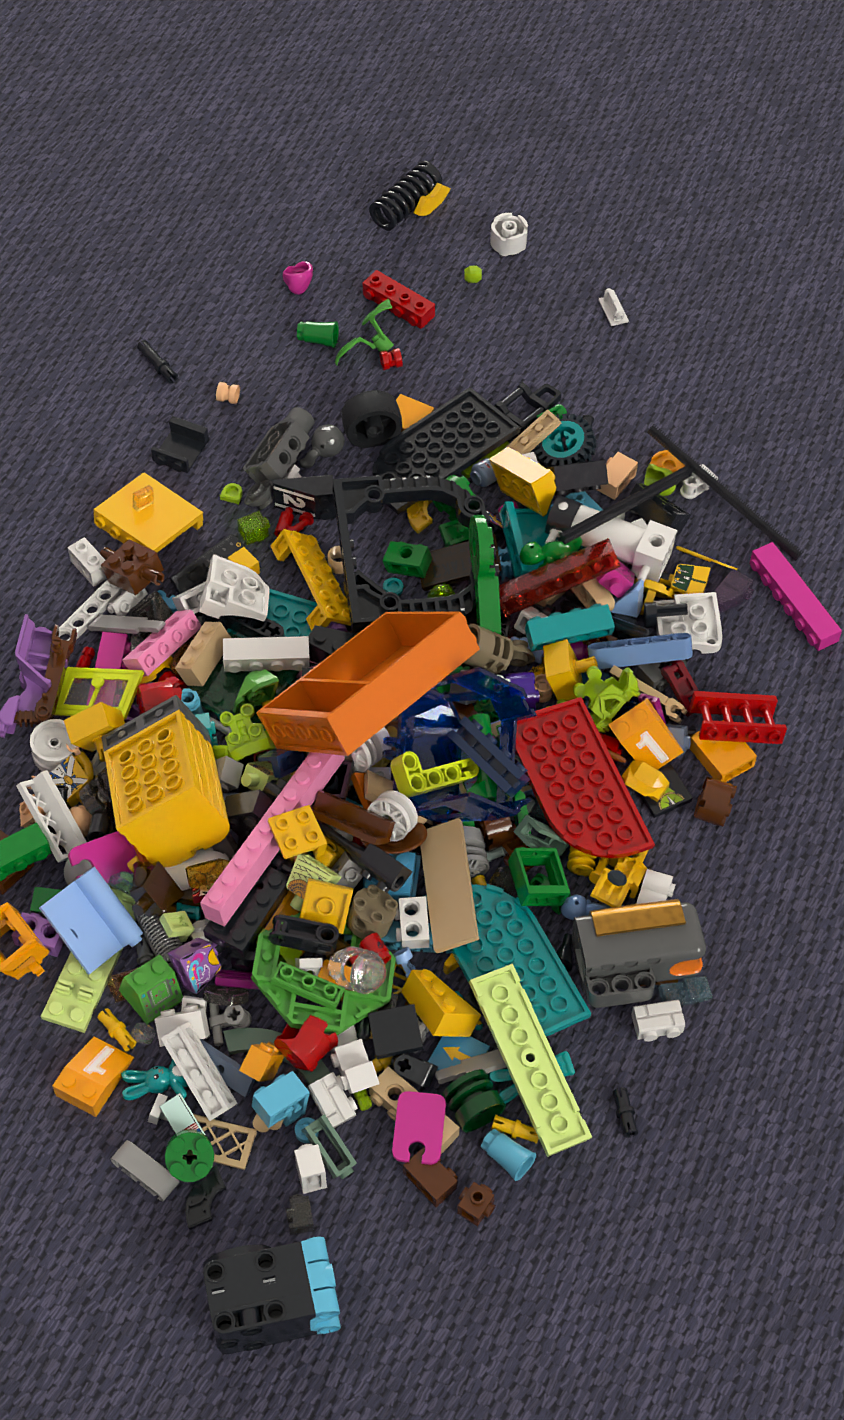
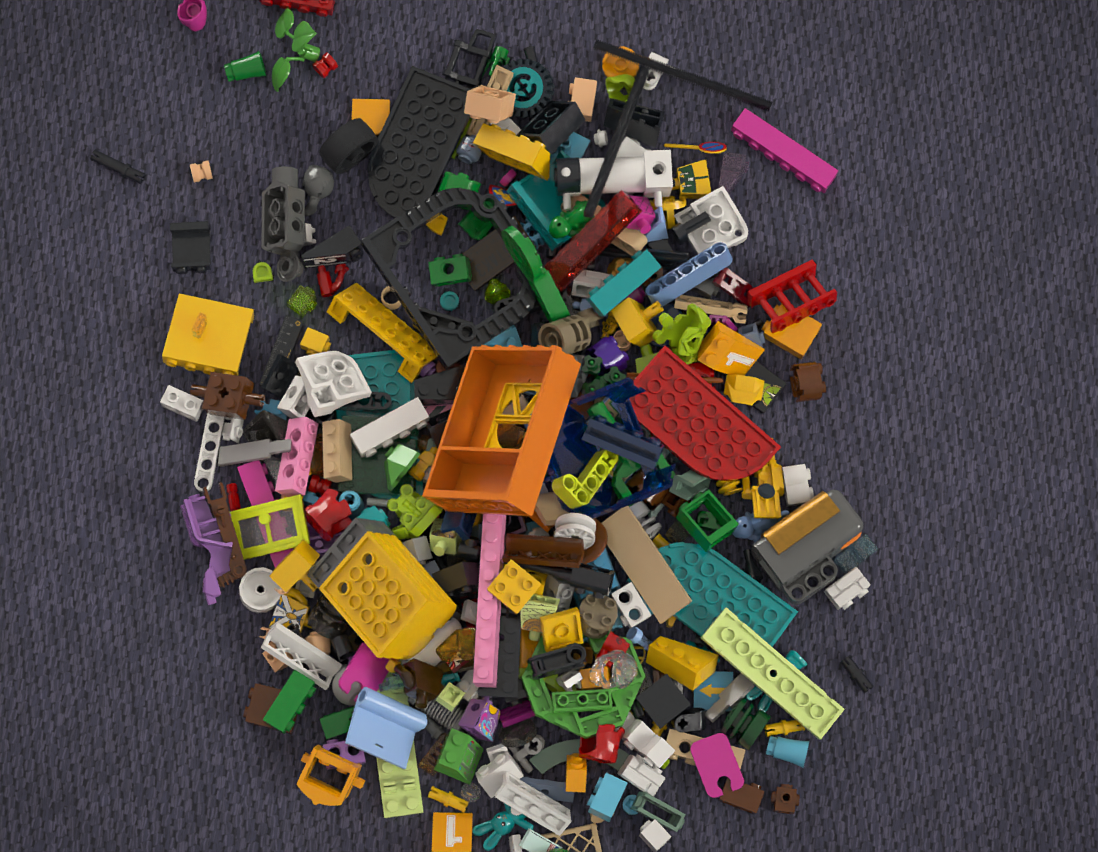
camera: 30 degrees left, 20 degrees up
(522, 432) = (489, 104): none -> light nougat brick

